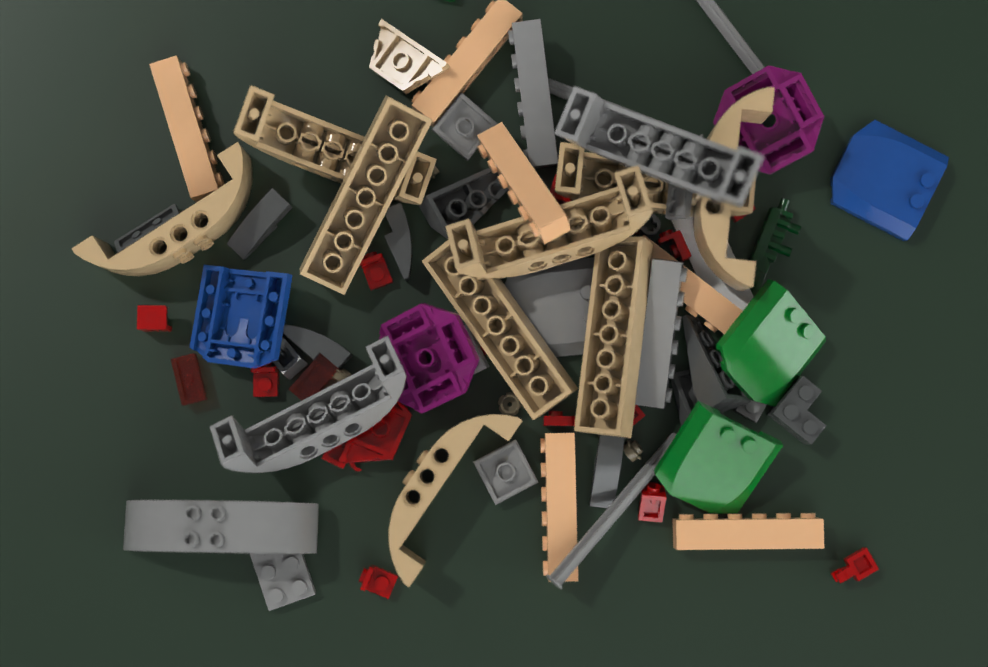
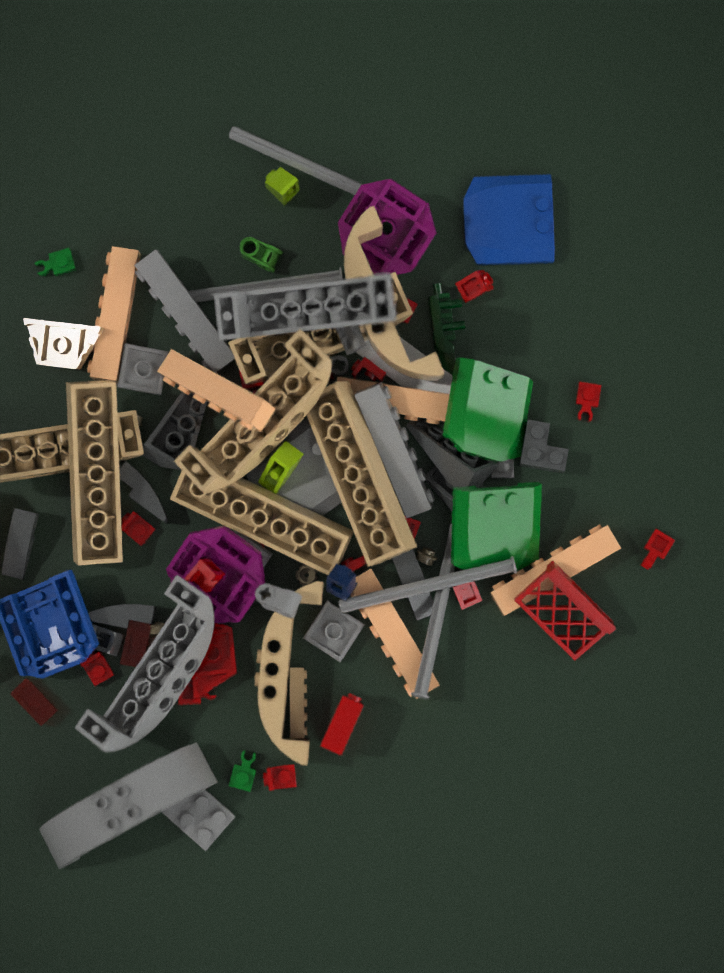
camera: 25 degrees left, 0 degrees up
(344, 558) = (243, 775): none -> green plate
(415, 351) = (205, 574): none -> red panel
(434, 520) = (298, 703): none -> tan piece
(465, 566) = (342, 723): none -> red brick
(473, 416) = (278, 600): none -> light grey piece
(542, 289) = (280, 467): none -> lime slope
(544, 427) = (343, 577): none -> dark blue brick
(621, 480) = (428, 585): none -> light grey axle
(635, 81) = (261, 254): none -> bright green piece
(691, 27) = (282, 185): none -> lime slope
(757, 572) = (575, 595): none -> red fence
(819, 221) = (475, 285): none -> red bracket
(868, 386) = (587, 396): none -> red plate

